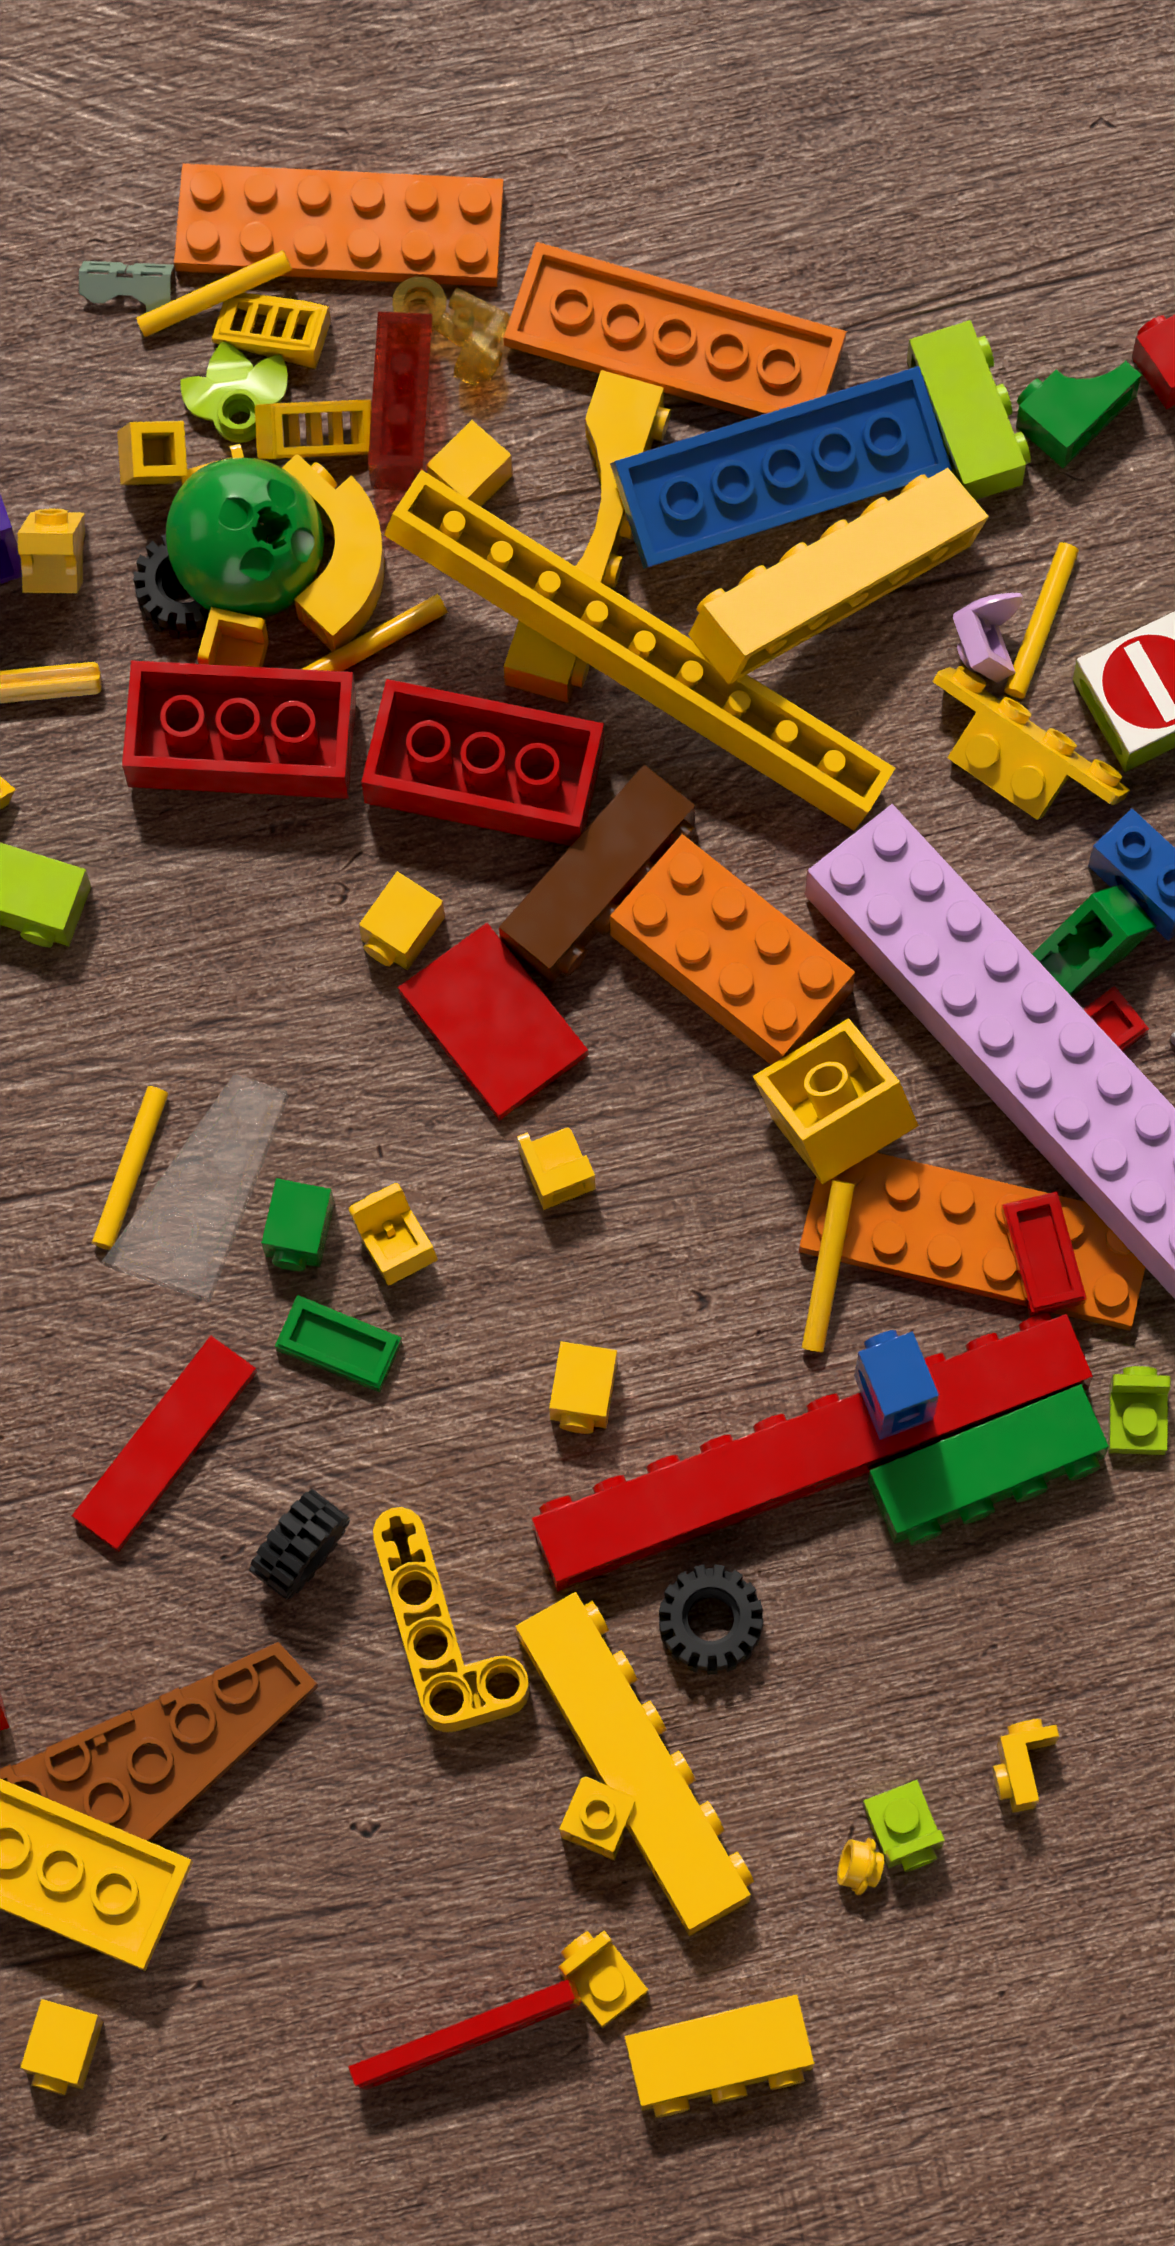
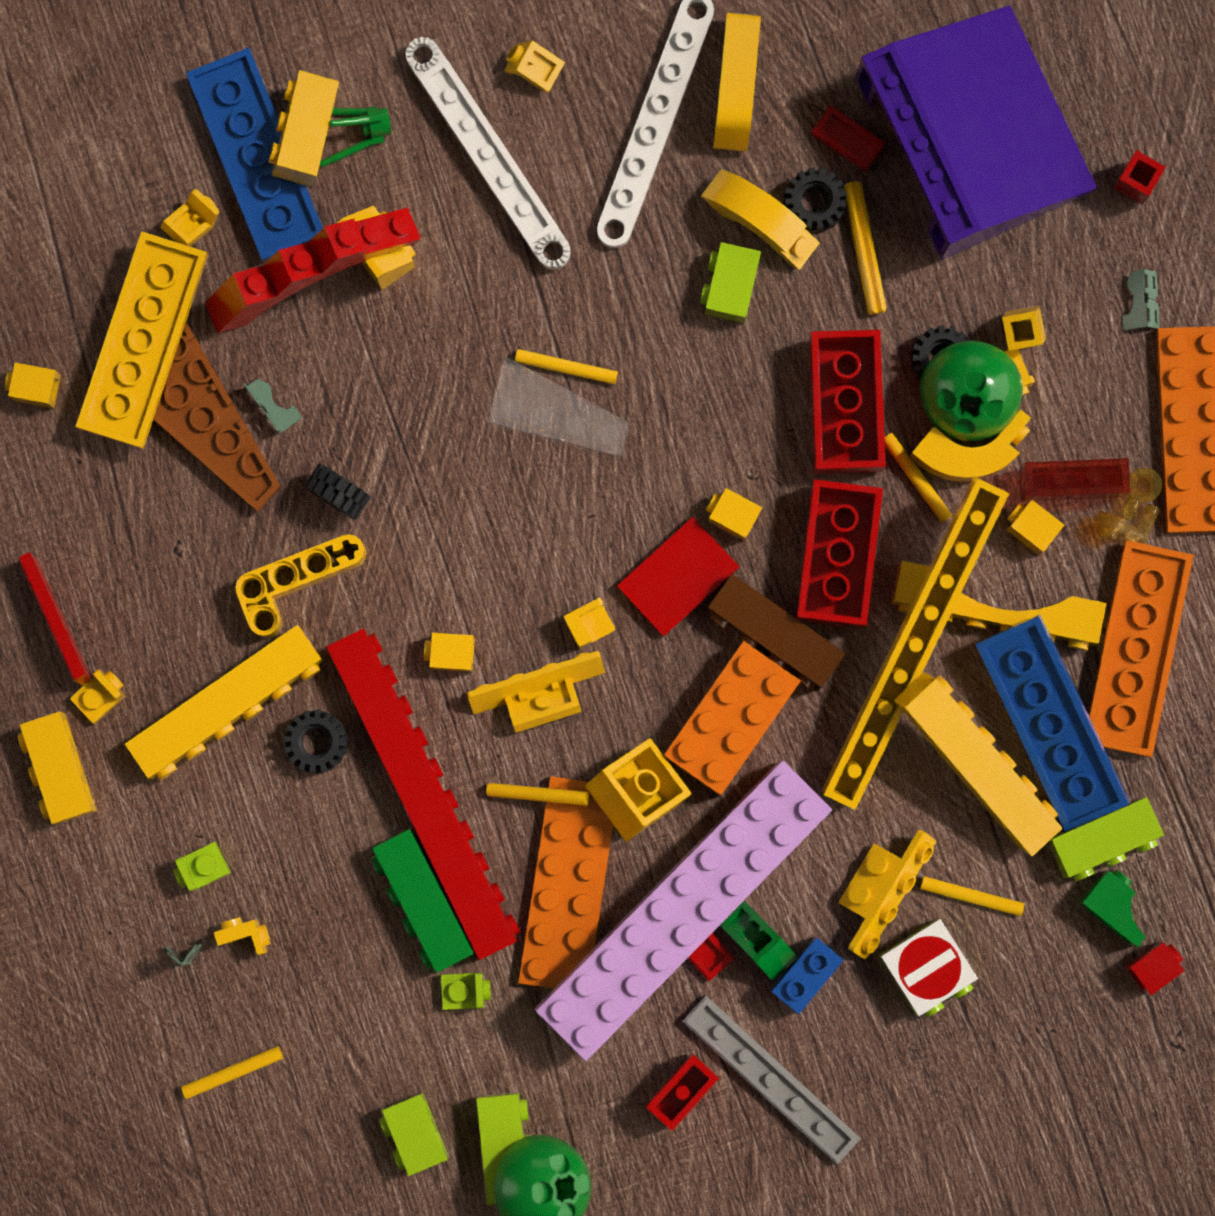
camera: 80 degrees right, 10 degrees up
(52, 551) = (954, 273): yellow brick -> none
(160, 1640) = (278, 416): none -> sand green piece
(164, 1443) = (397, 406): red tile -> none
(214, 293) = (1138, 355): yellow bar -> none
(233, 639) = (901, 392): panel -> none
(234, 387) = (1079, 375): lime plate -> none
(271, 429) = (1057, 399): yellow slope -> none
(294, 312) = (1118, 421): yellow slope -> none
(297, 1224) = (536, 470): green brick -> none
(338, 1343) = (468, 503): green tile -> none
(392, 1234) = (535, 528): yellow bracket -> none
(597, 1817) = (187, 684): yellow bracket -> none
(666, 1250) = (540, 694): none -> yellow bracket
(860, 1865) = (175, 842): yellow plate -> none
(895, 1383) = (455, 838): blue brick -> none
(981, 640) = (953, 858): lavender plate -> none
(1043, 1254) = (555, 925): red tile -> none
(1053, 1848) = (184, 961): none -> sand green piece

